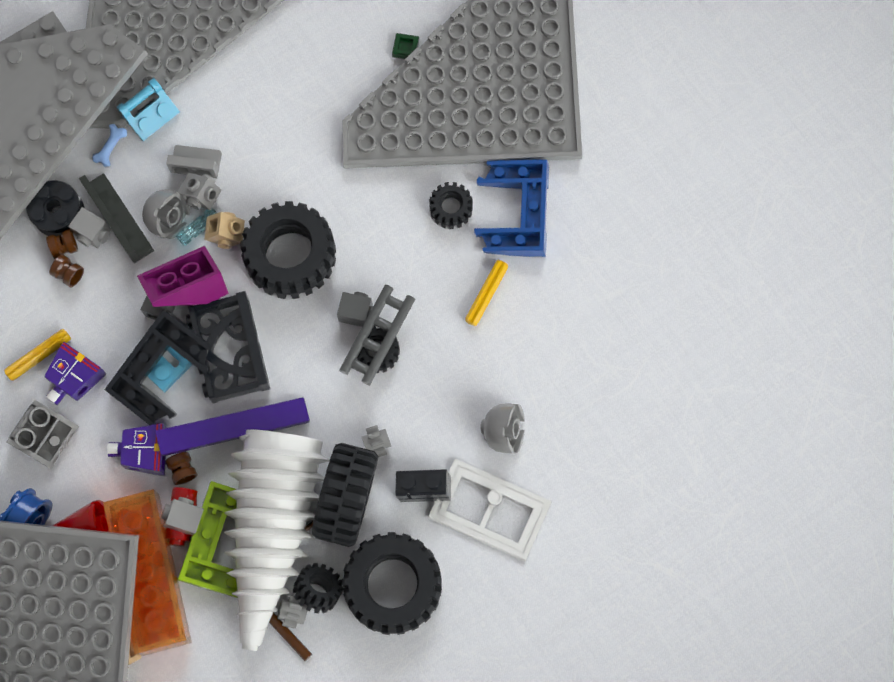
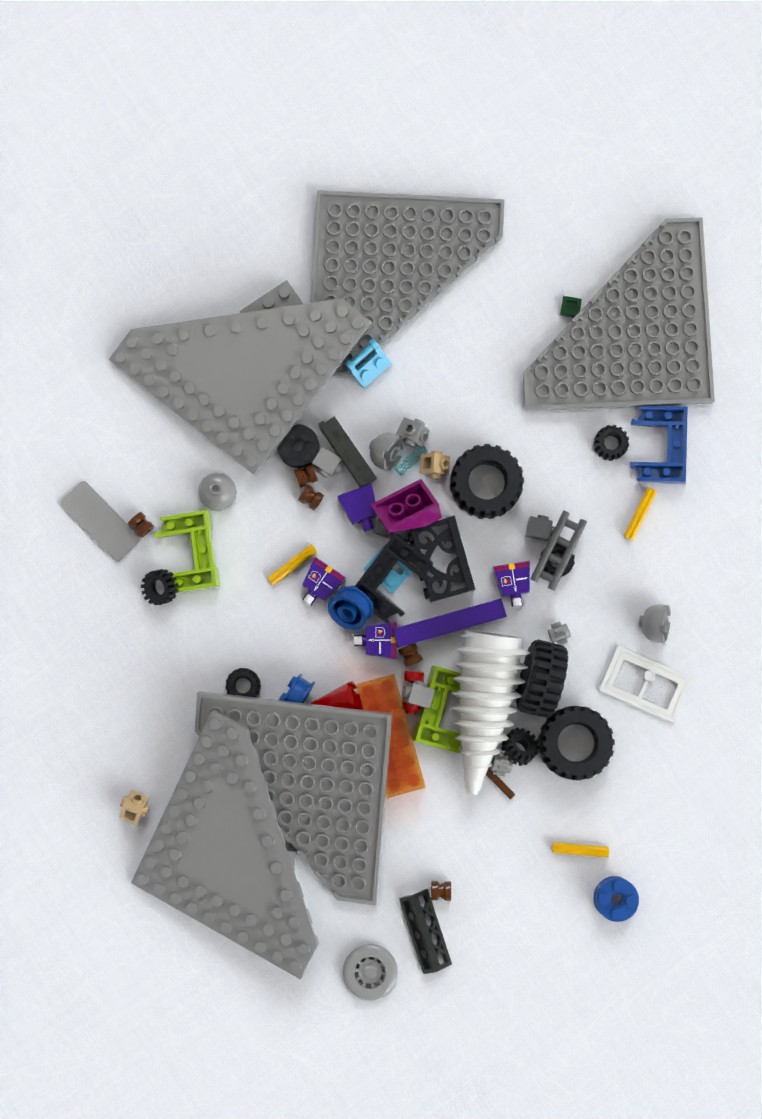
camera: 10 degrees left, 10 degrees up
(42, 434) = (300, 628): light grey slope -> none
(103, 405) = (350, 608): none -> blue wheel
(115, 135) = (342, 384): light blue piece -> none
(123, 280) = (358, 506): none -> dark purple torso
(194, 161) = (406, 405): light grey panel -> none
(319, 374) = (513, 581): none -> dark purple torso
(423, 485) = (596, 668): black brick -> none

